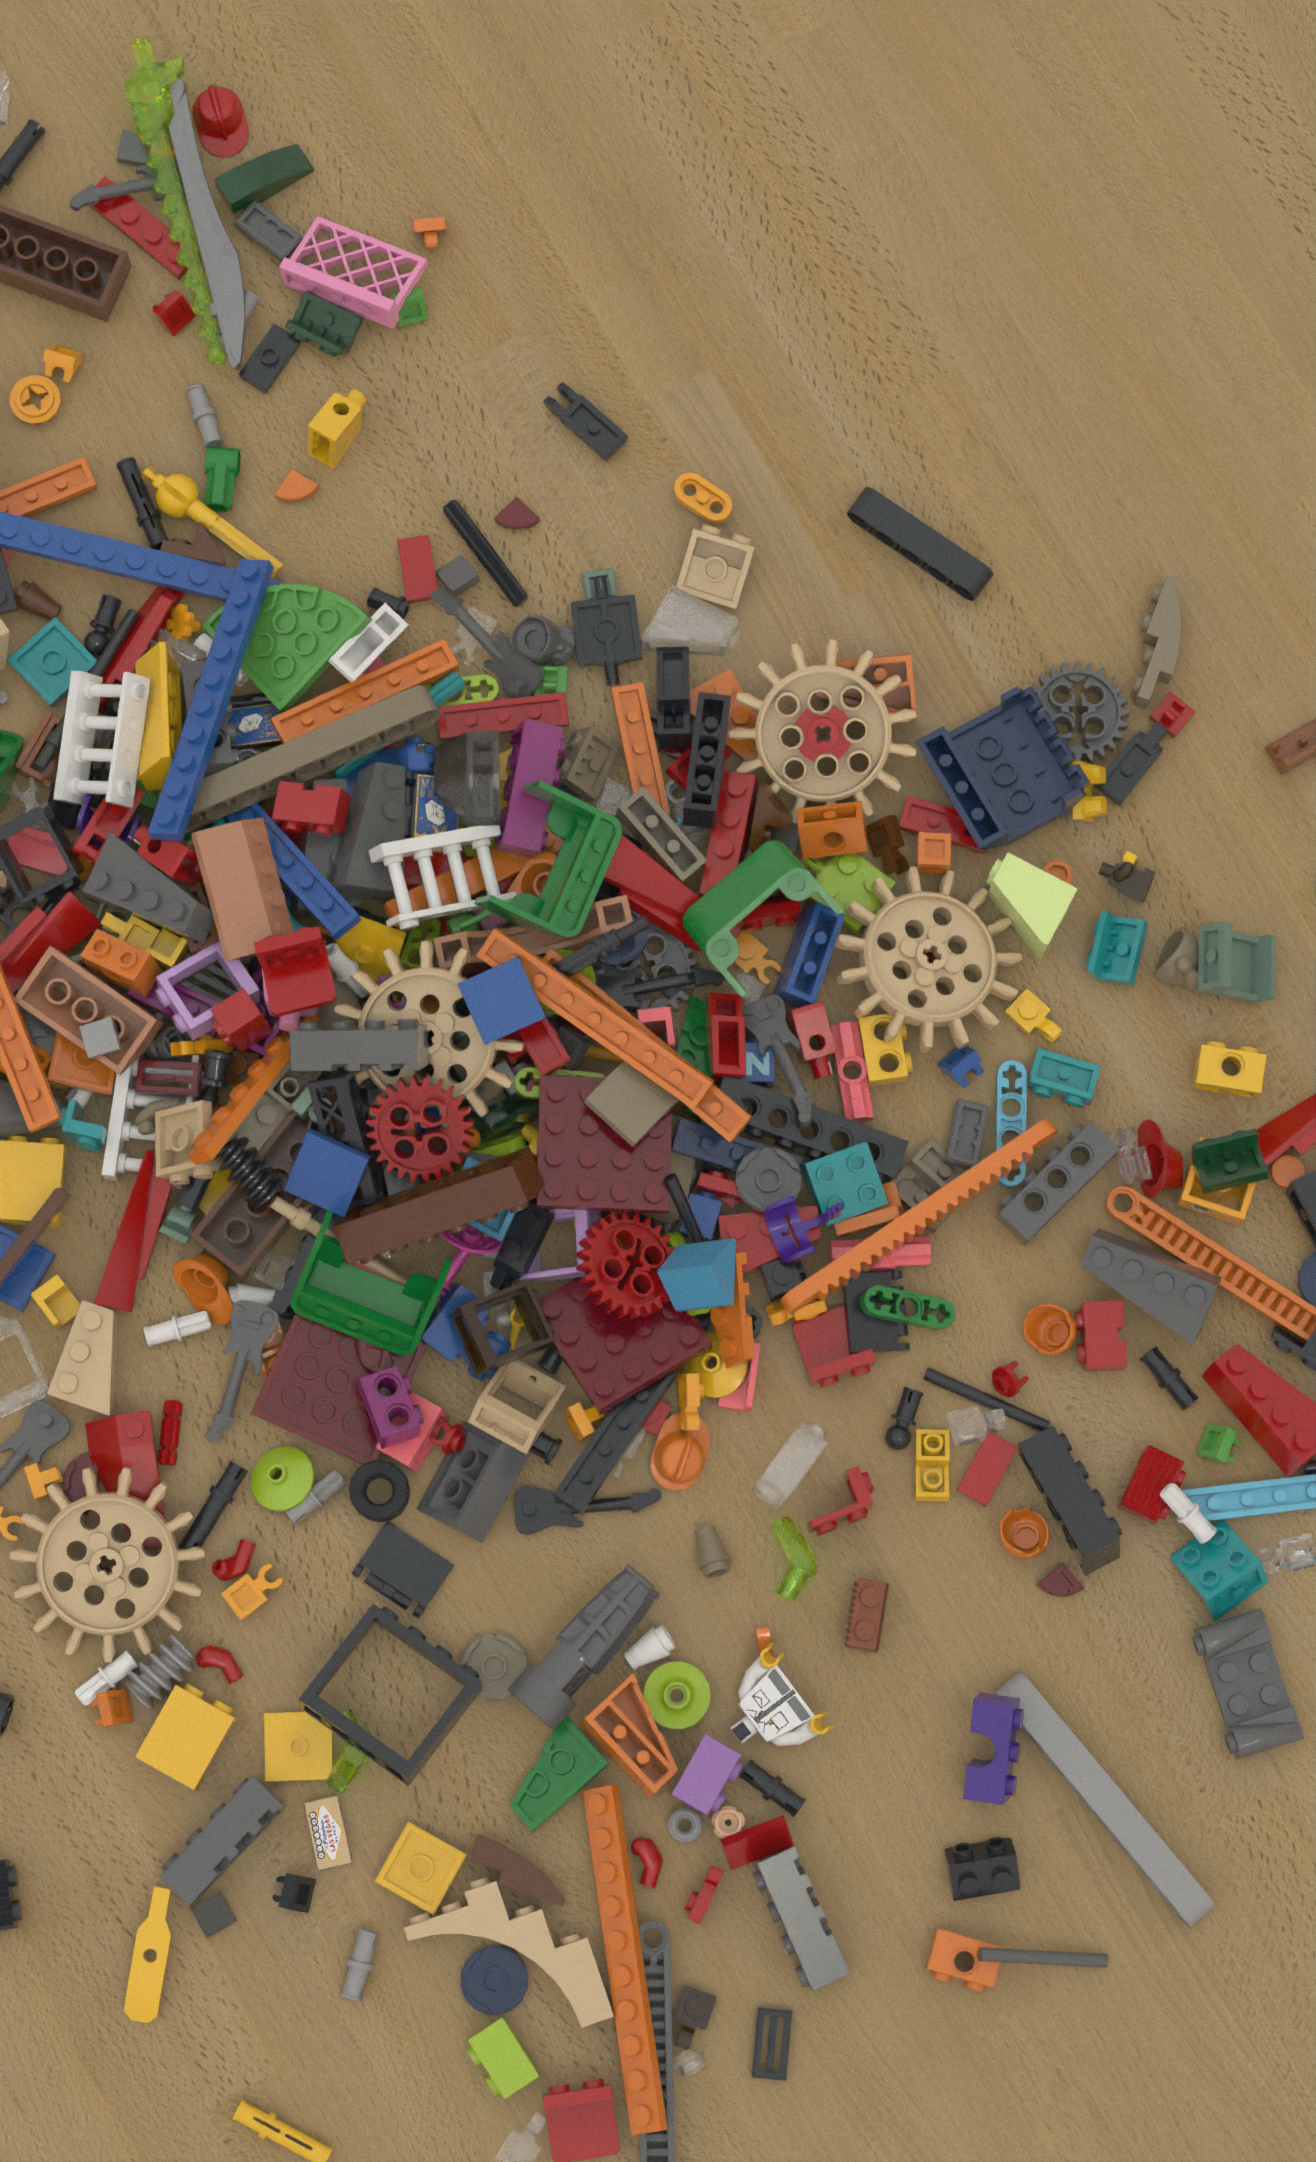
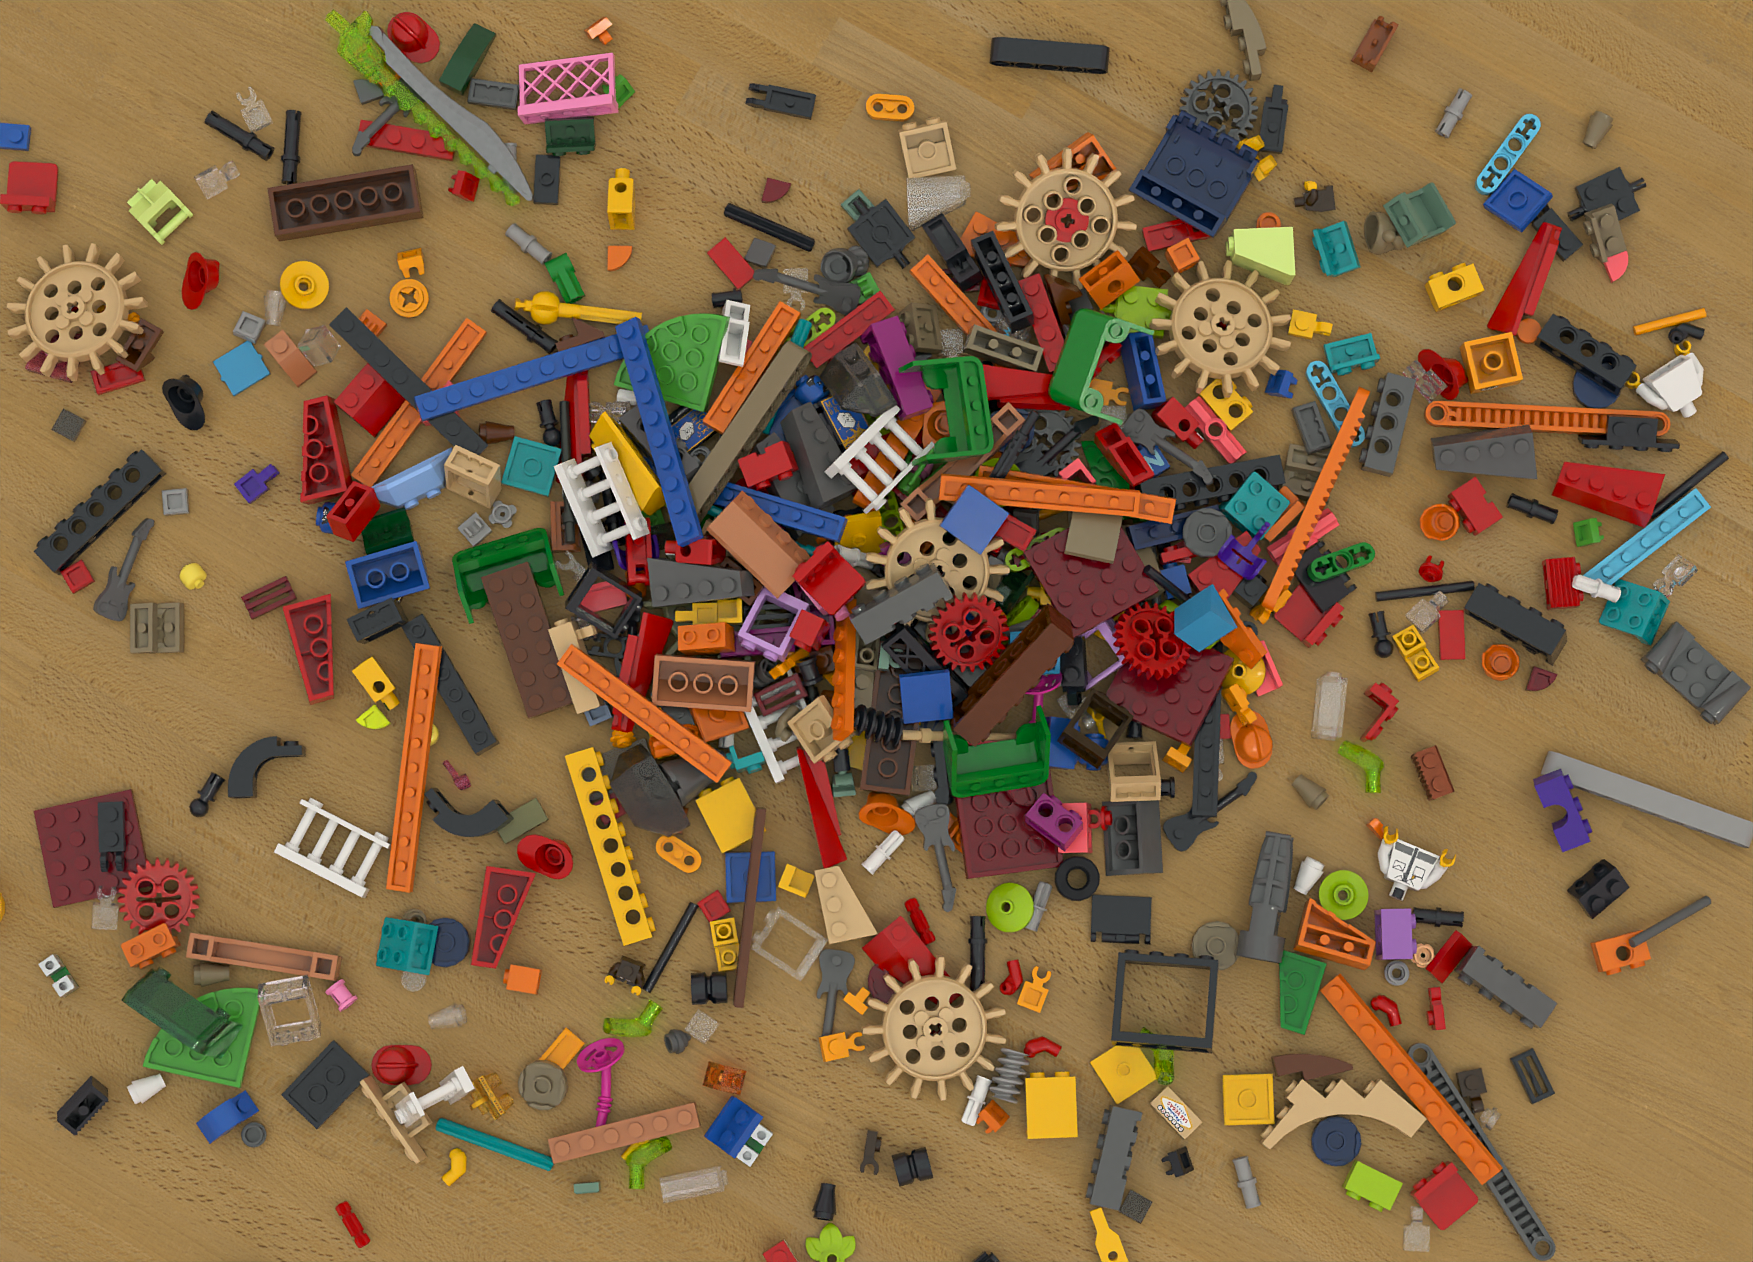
camera: 30 degrees left, 5 degrees up
(100, 1037) = (725, 695): light grey tile -> none
(182, 623) = (600, 391): light orange plant -> none
(1172, 714) = (1279, 73): red tile -> none
(1228, 1161) = (1493, 348): dark green bracket -> none

